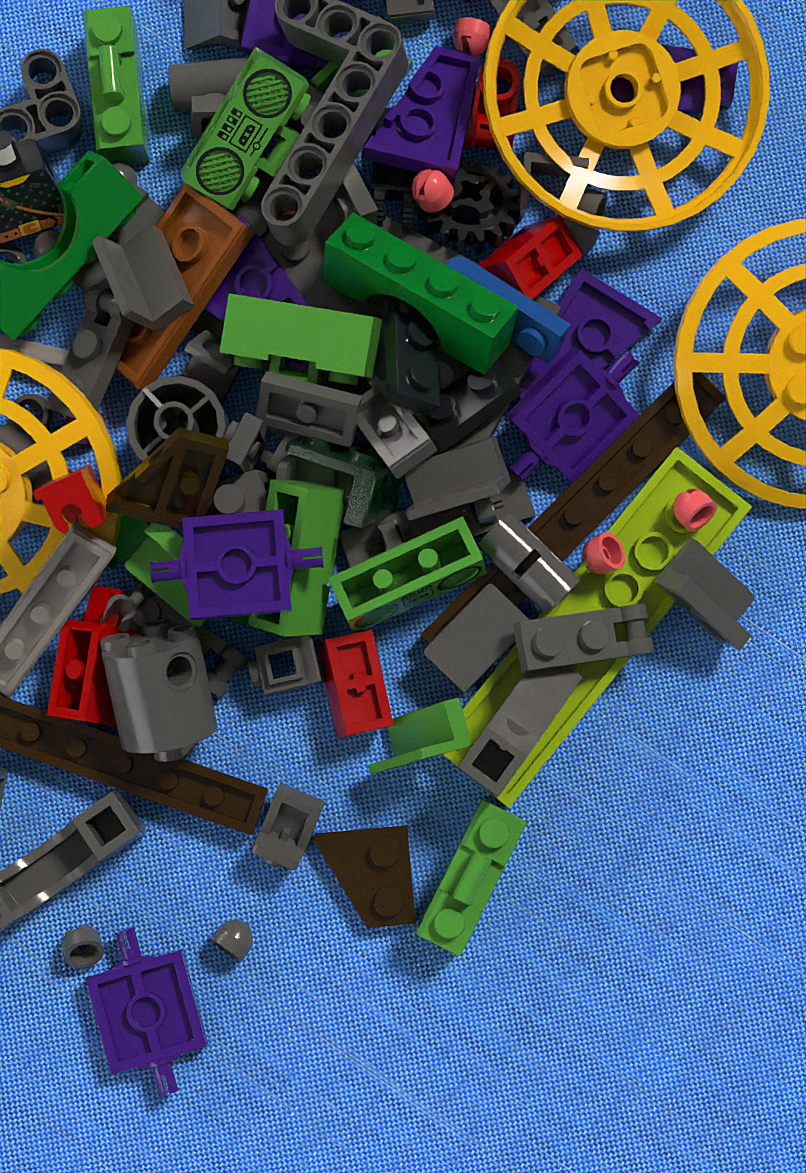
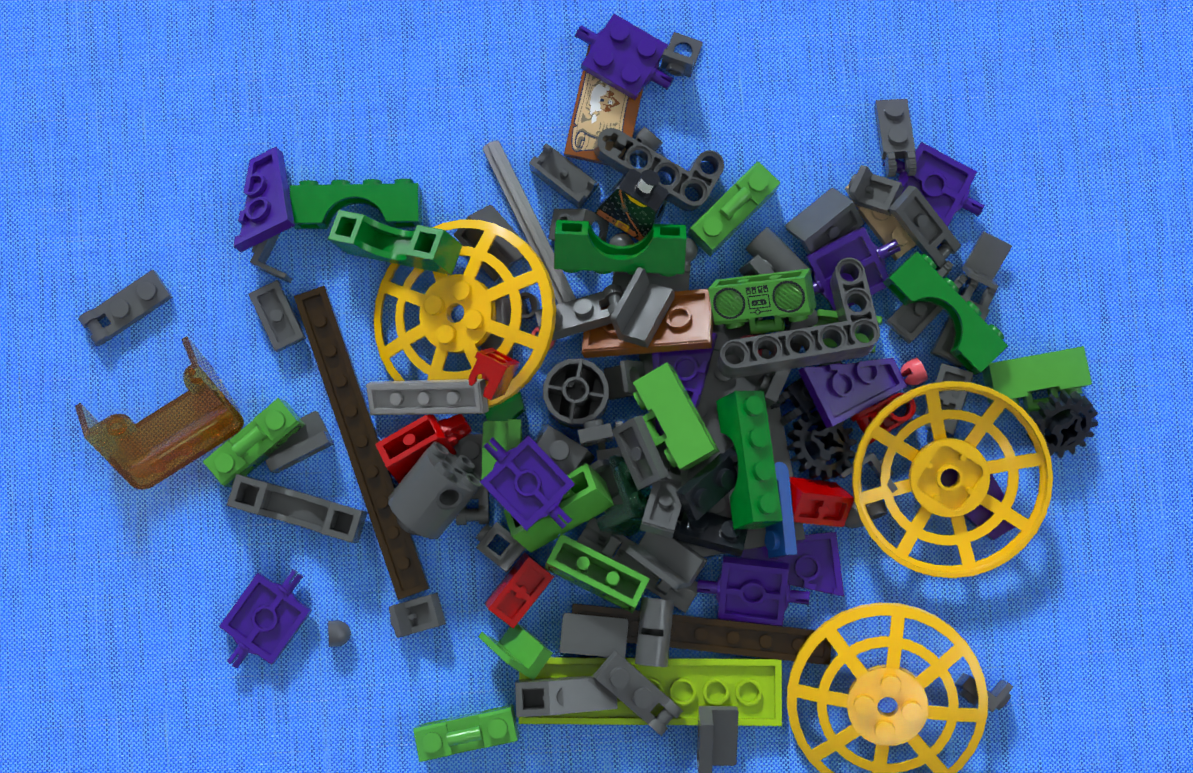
camera: 50 degrees right, 0 degrees up
(83, 957) = (276, 562): dark grey hinge -> none
(126, 606) = (464, 440): dark grey hand -> none
(172, 480) = (544, 414): dark brown wing -> none
(373, 872) = (429, 678): dark brown wing -> none
(432, 190) = (813, 423): coral hinge -> none
(604, 554) = (697, 670): coral hinge -> none
(694, 509) = (754, 696): coral hinge -> none

